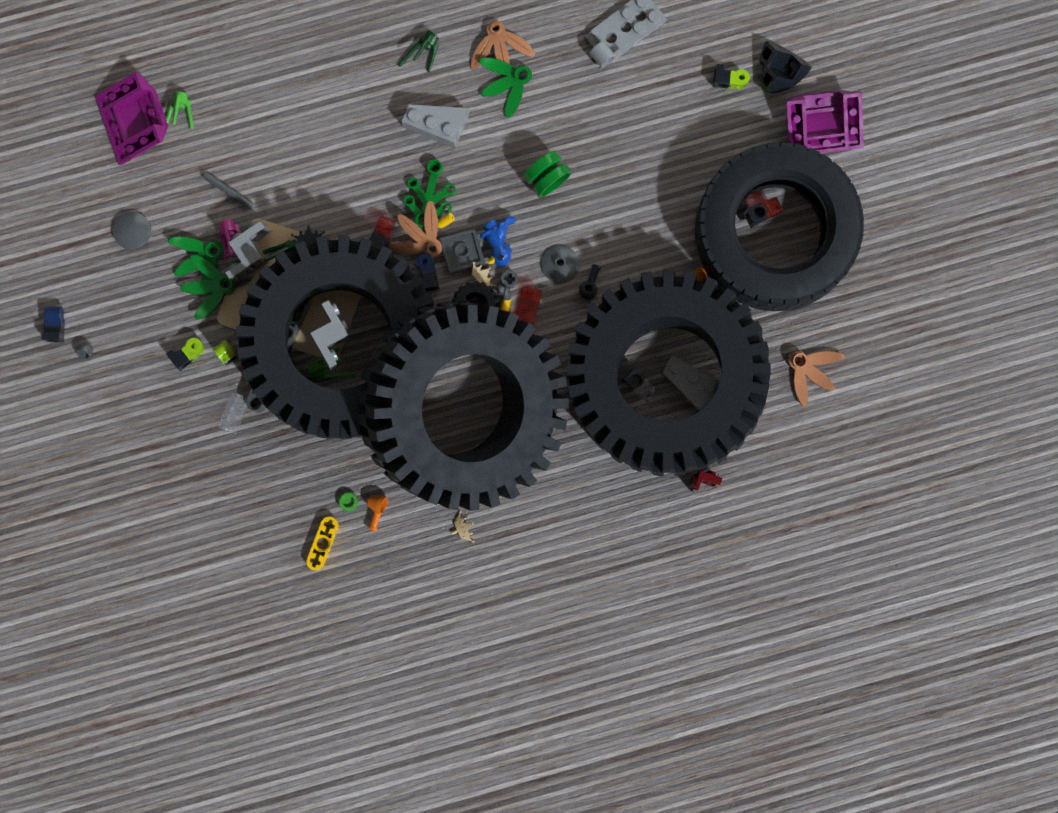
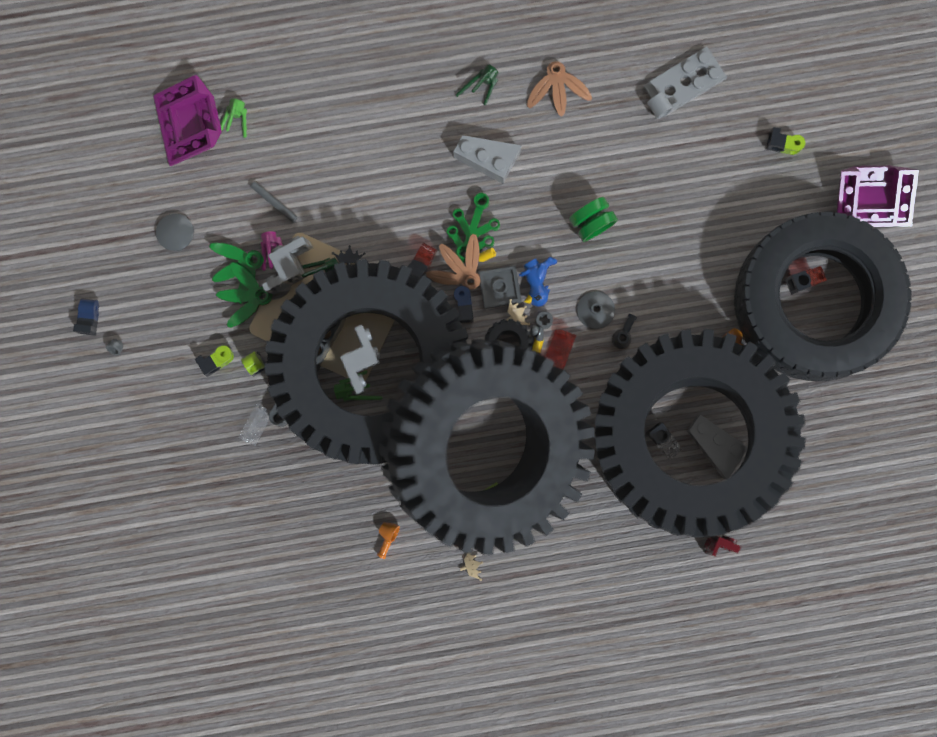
camera: 10 degrees right, 0 degrees up
(312, 555) = (332, 550): yellow beam -> none
(348, 501) = (360, 526): bright green tile -> none
(512, 80) = (566, 122): green plant -> none
(781, 68) = (837, 138): black brick -> none
(806, 367) = (833, 441): nougat plant -> none

